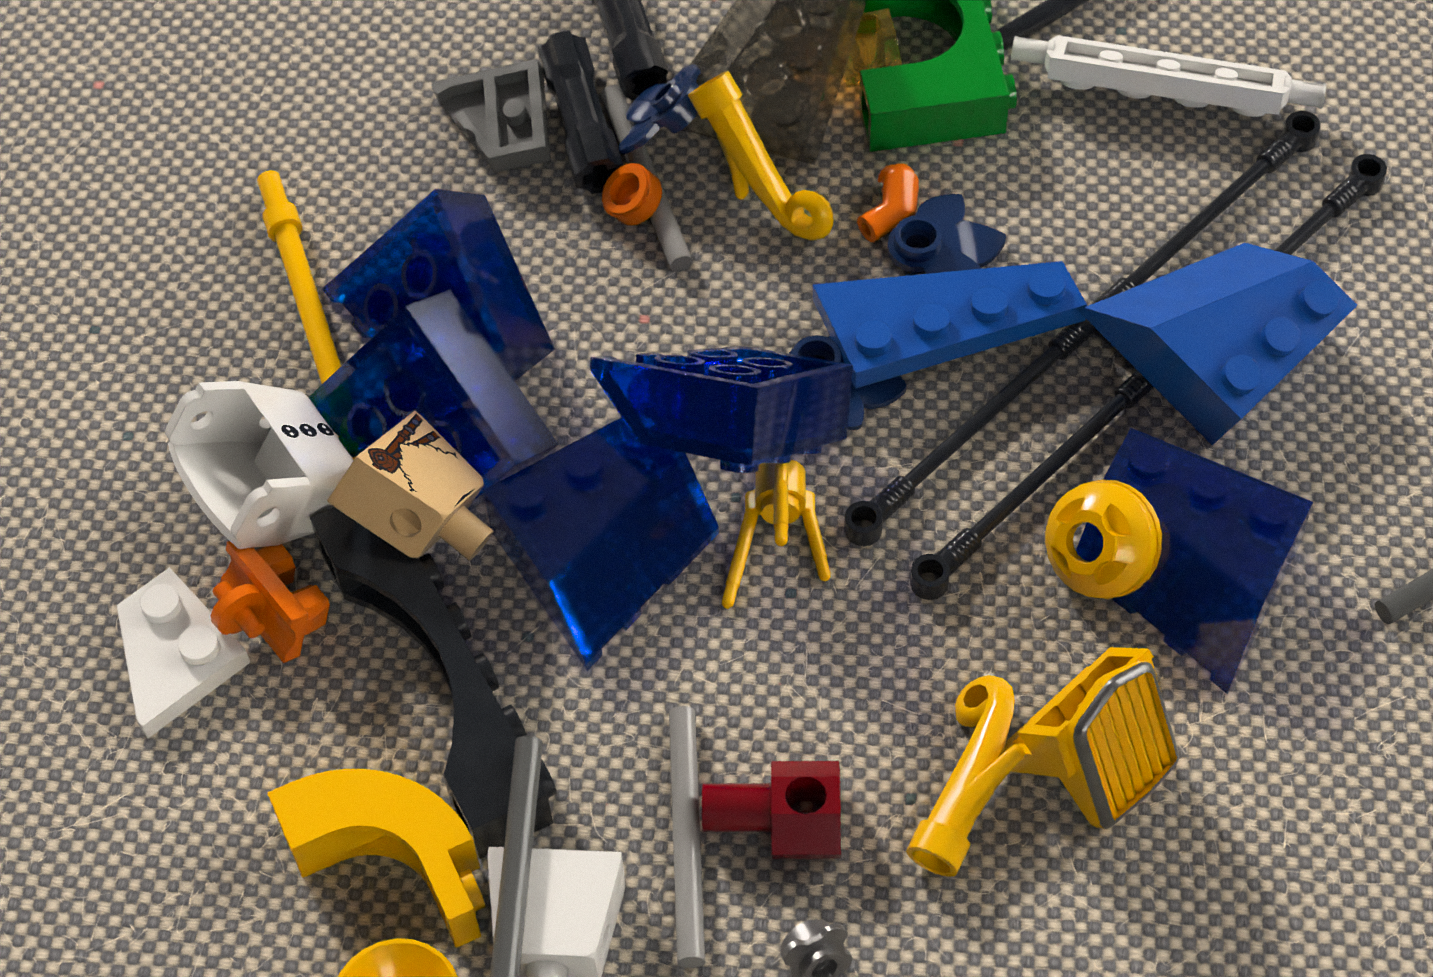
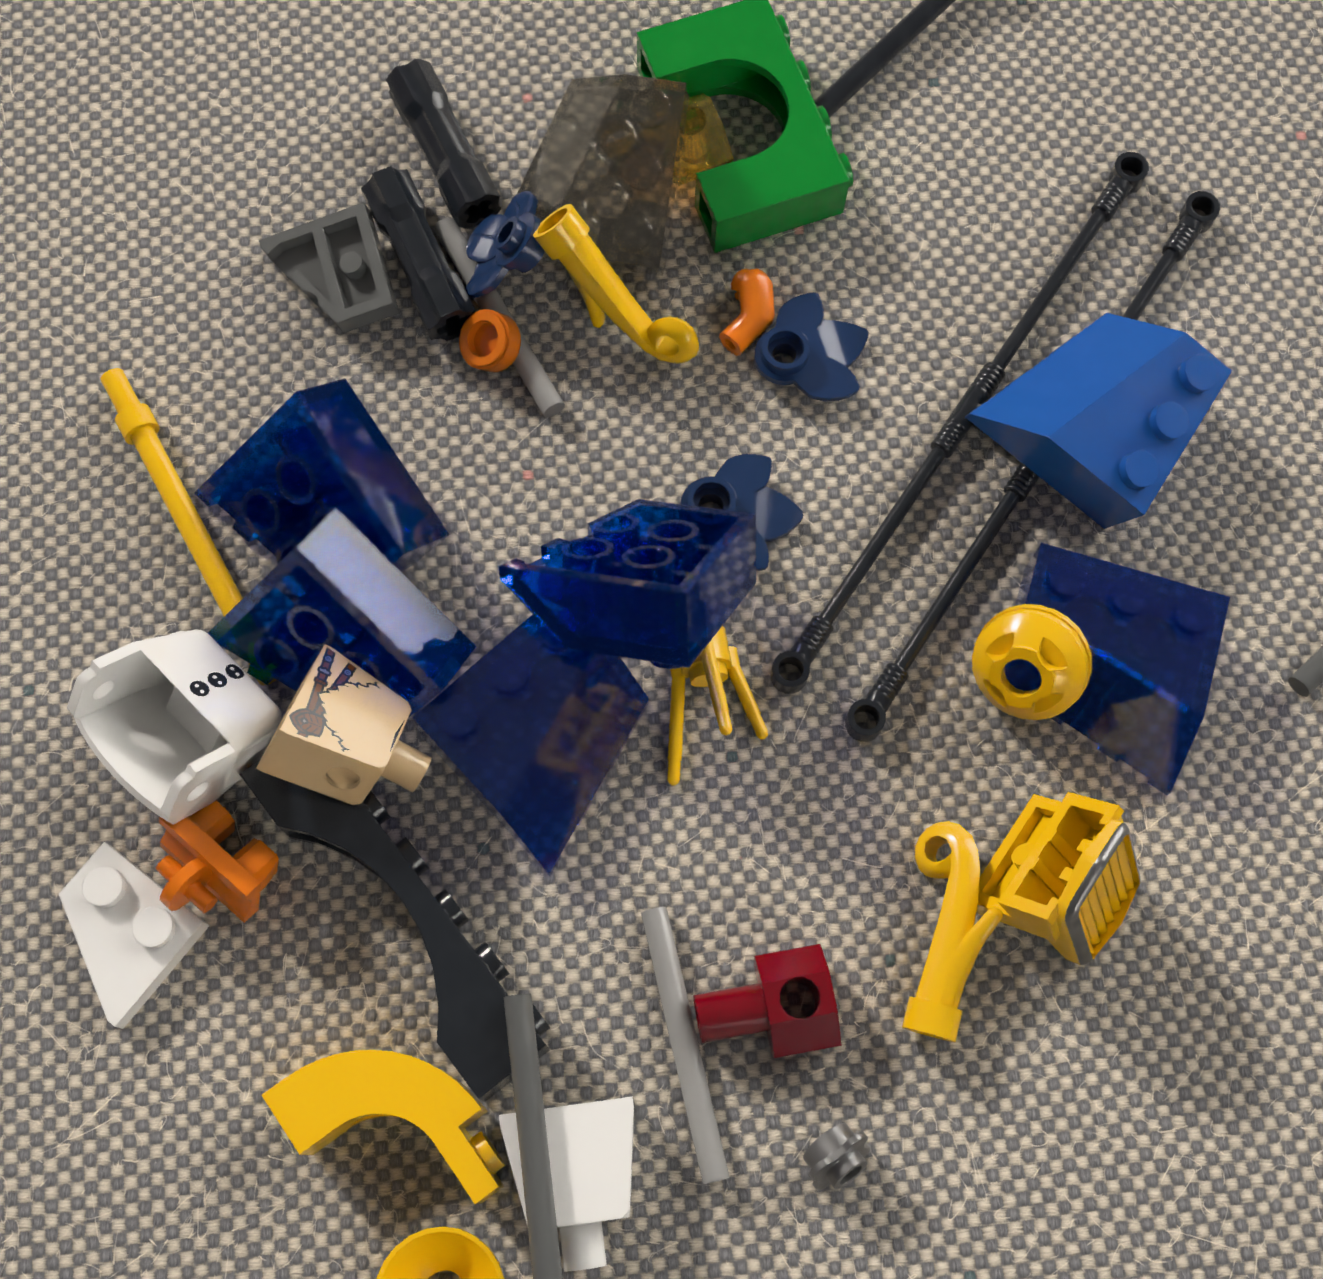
camera: 15 degrees left, 15 degrees up
(936, 317) = (819, 438): blue wing -> none
(1185, 78) = (993, 130): white plate -> none

